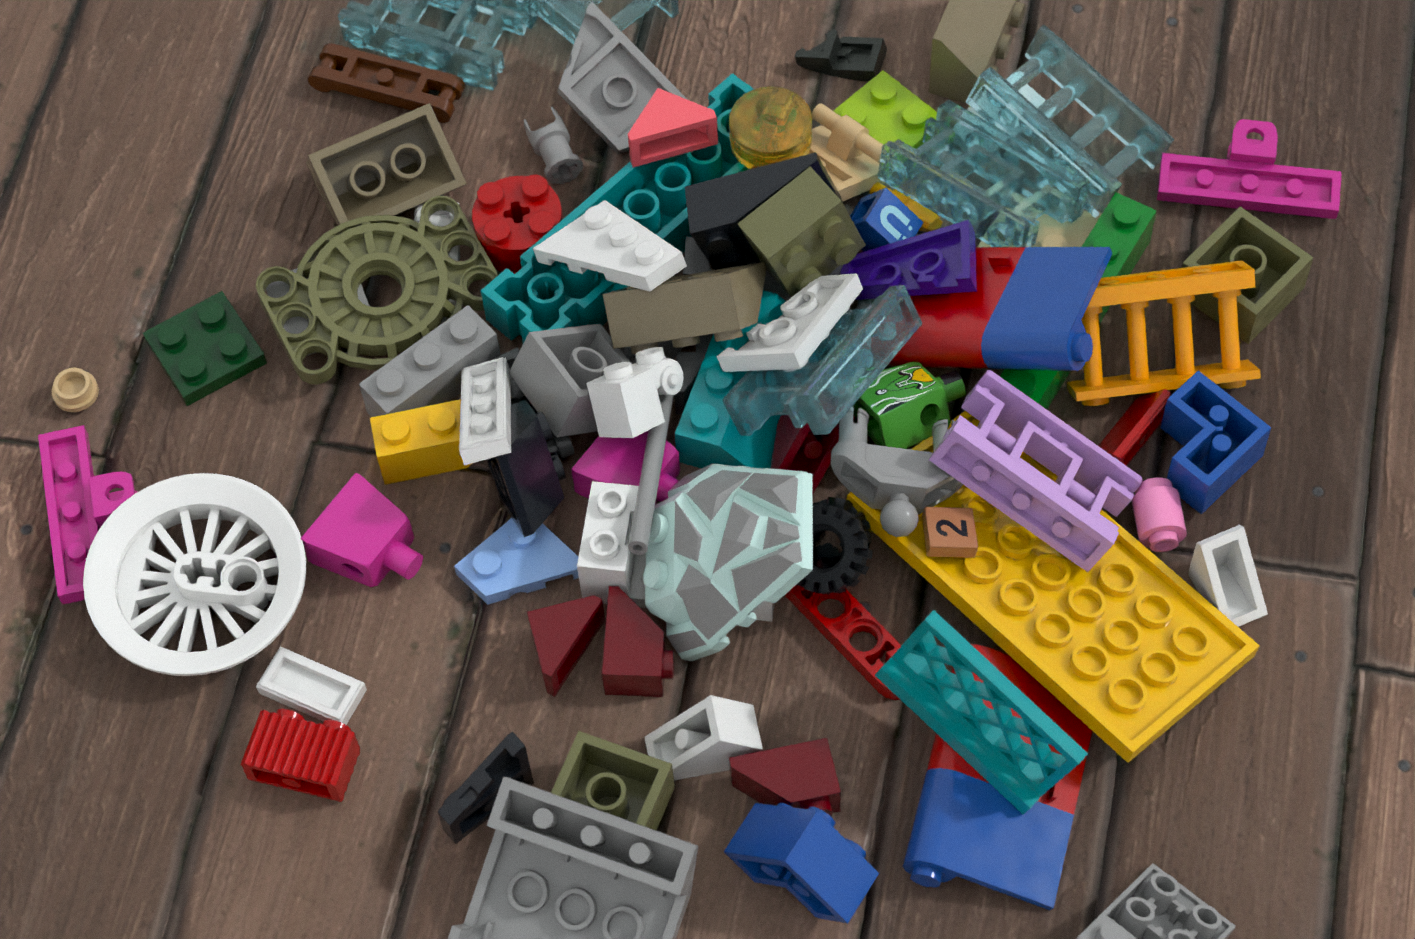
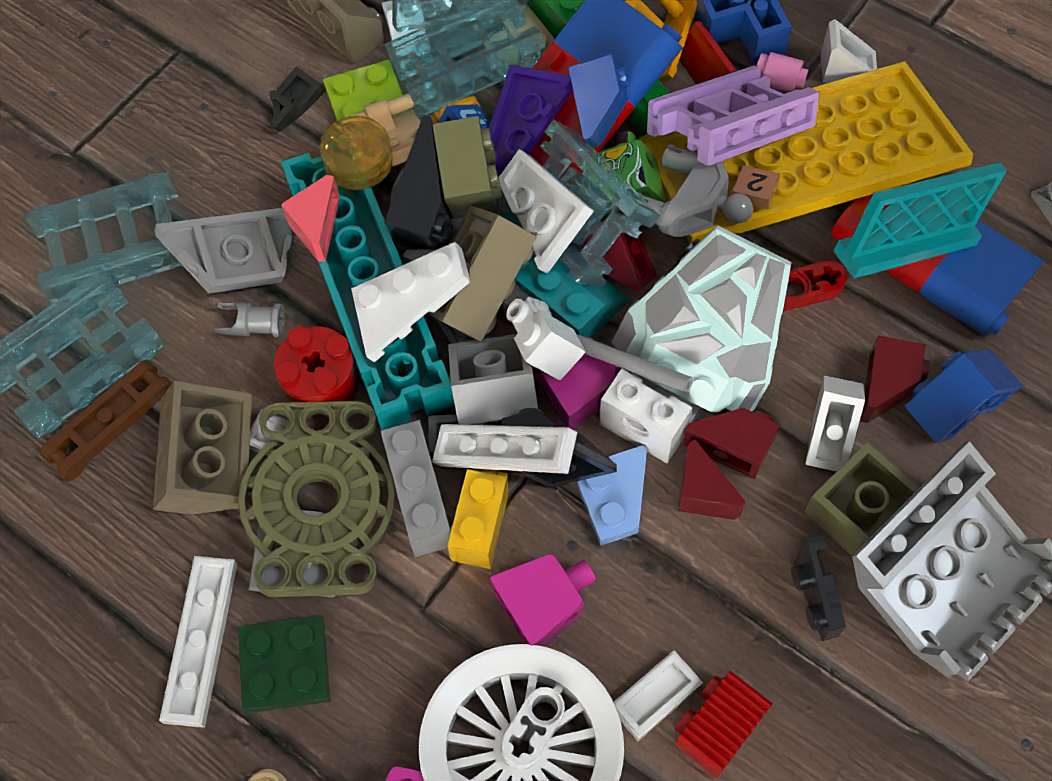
camera: 65 degrees left, 5 degrees up
(197, 268) = (198, 642): none -> white tile
(954, 315) = (599, 95): none -> blue slope

